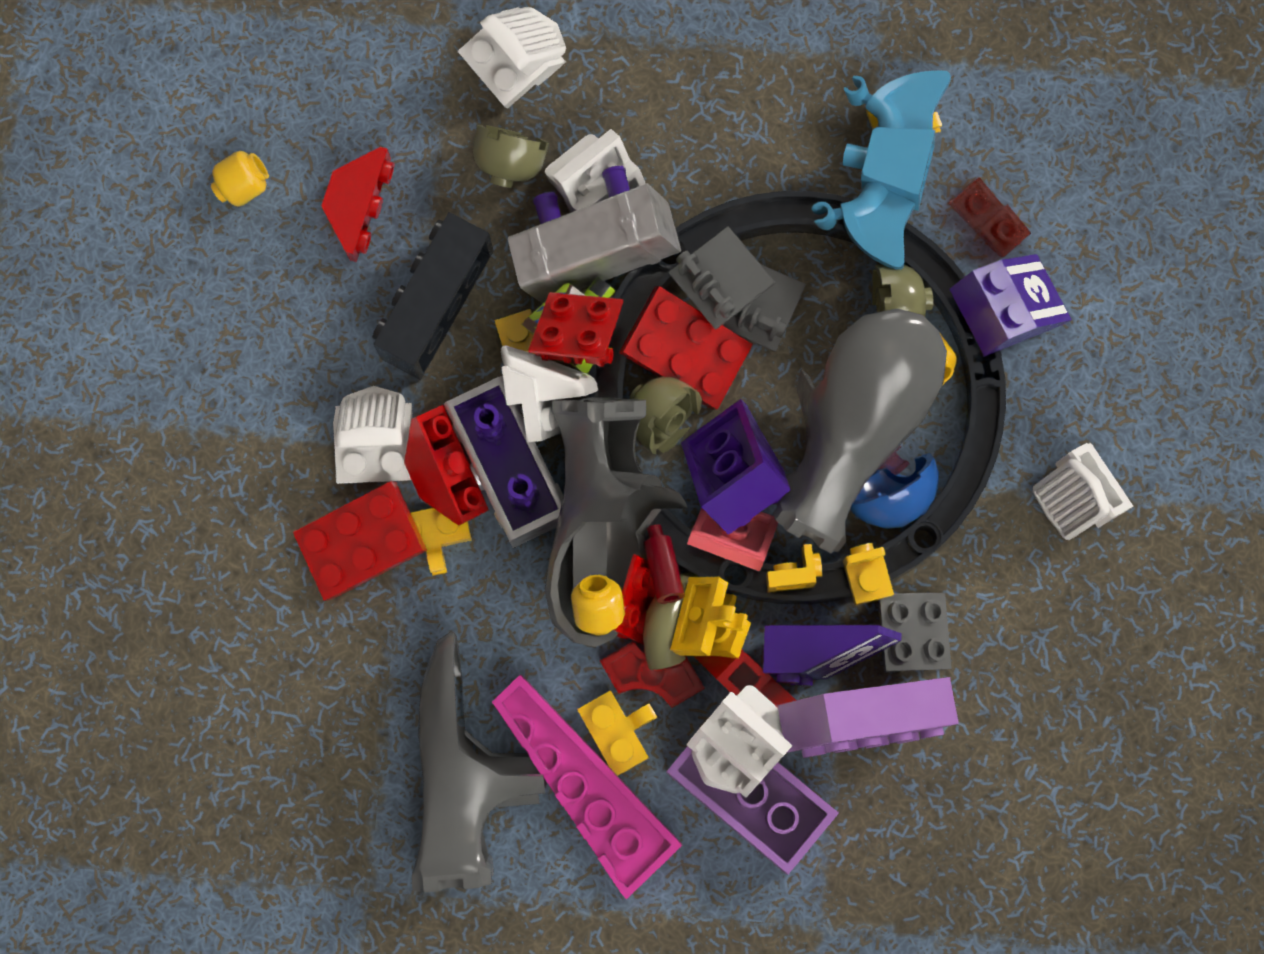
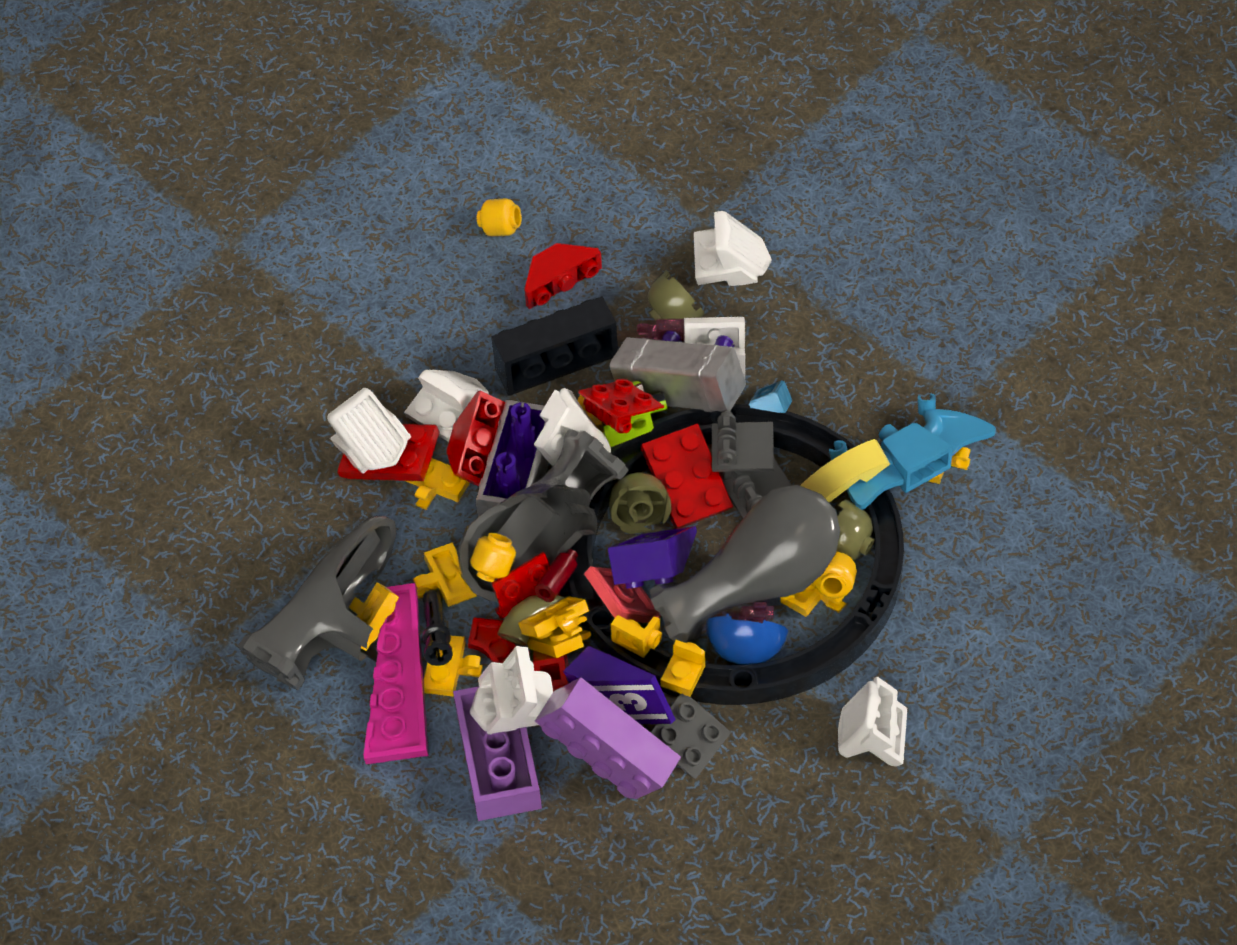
camera: 40 degrees right, 25 degrees down
(341, 548) = (368, 432): none -> white piece
(508, 741) = (375, 610): none -> yellow plate
(523, 195) = (656, 332): none -> clear pink plate
(534, 633) = (444, 575): none -> yellow plate
(591, 716) = (436, 634): none -> black pin
(698, 196) = (772, 398): none -> dark azure slope
(849, 257) = (845, 470): none -> light yellow slope
(989, 218) = (955, 535): clear red slope -> none
(1009, 302) = (921, 580): dark purple slope -> none

